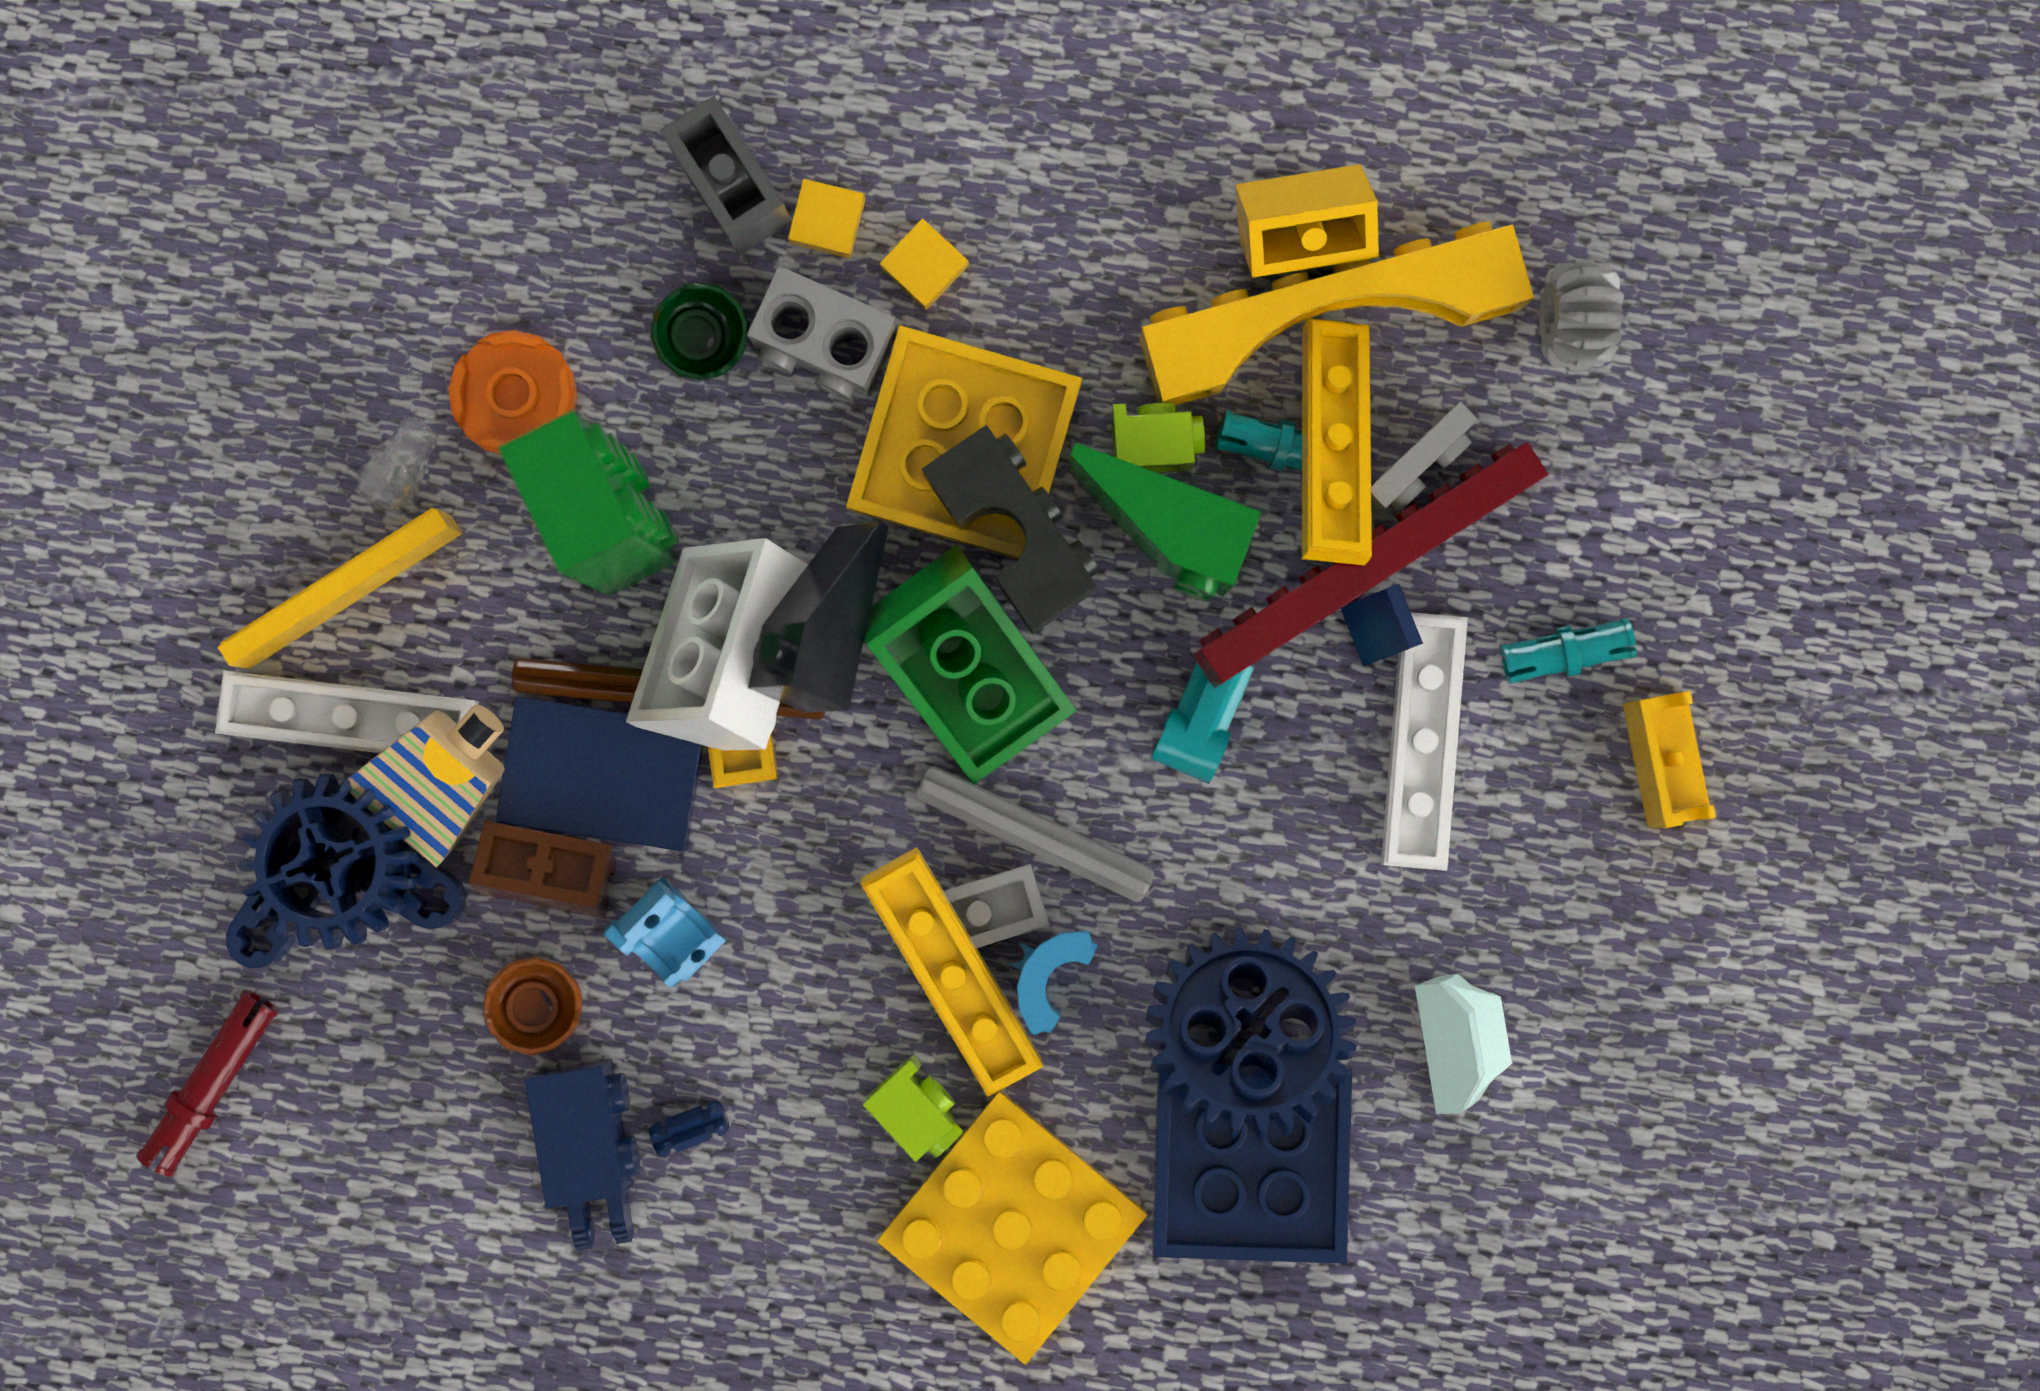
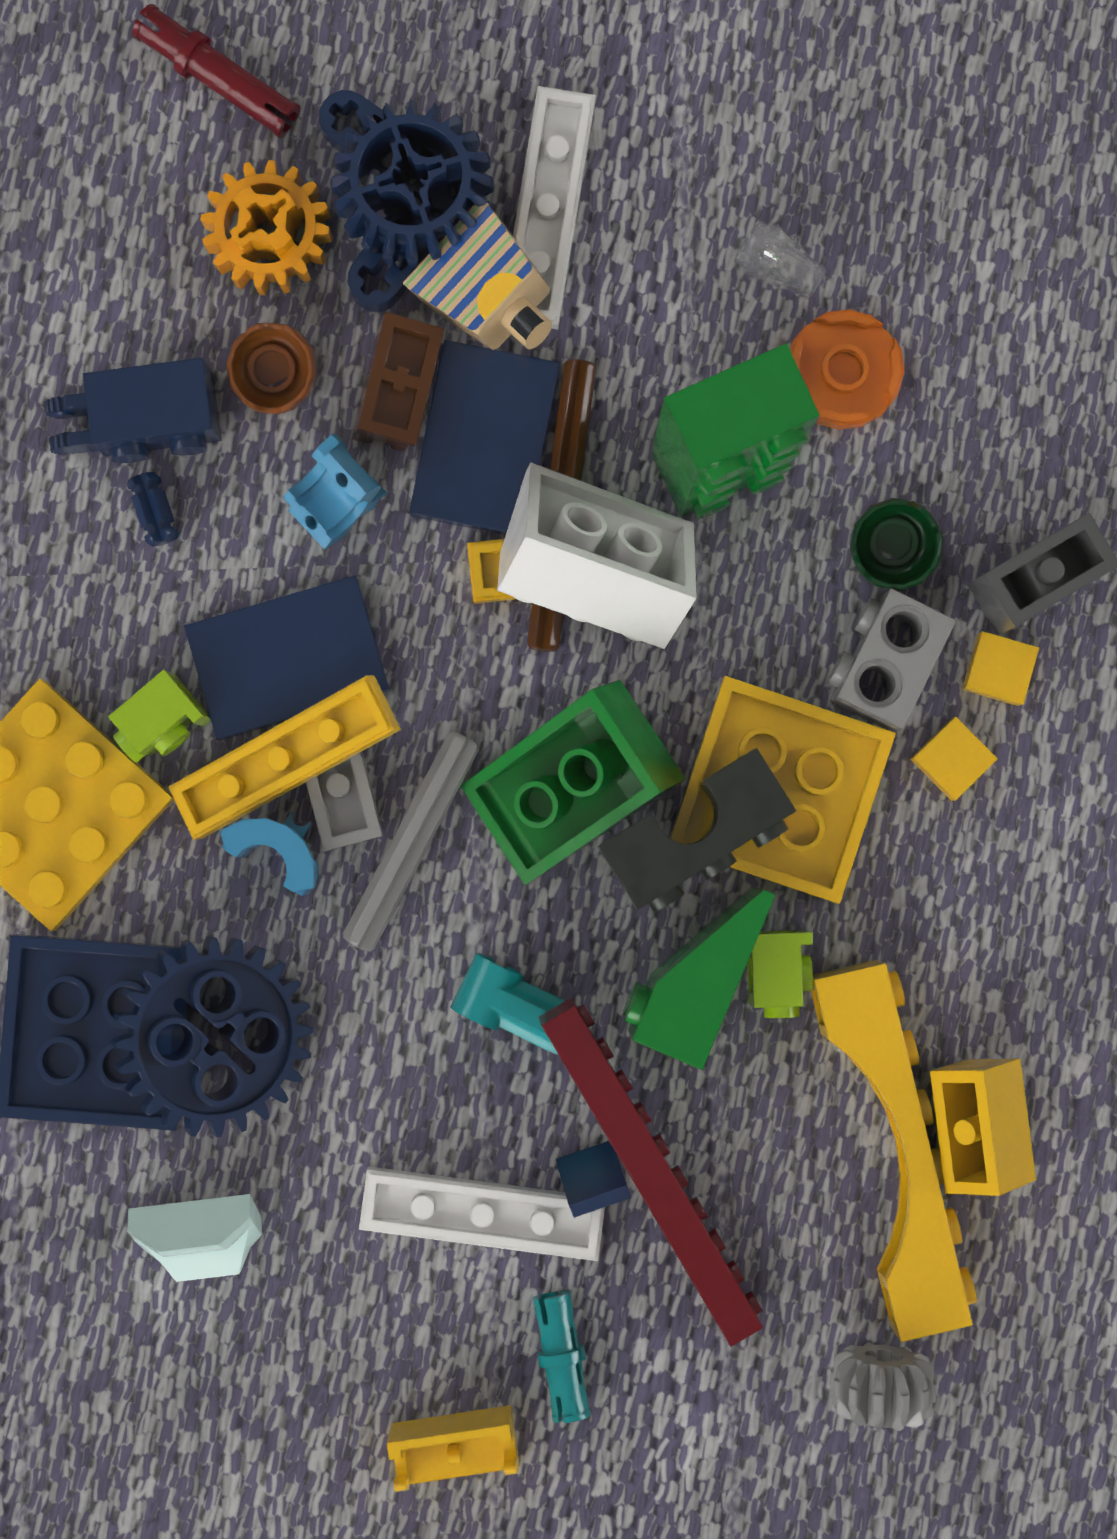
camera: 90 degrees right, 0 degrees up
(339, 589) = (666, 203): yellow tile -> none
(397, 1037) = (250, 244): none -> light orange gear
(818, 629) = (610, 645): black slope -> none
(842, 979) = (283, 656): none -> dark blue tile
(1261, 440) = (768, 1091): teal pin -> none
(1336, 442) = (768, 1144): yellow tile -> none
(1440, 444) = (763, 1243): light grey plate -> none

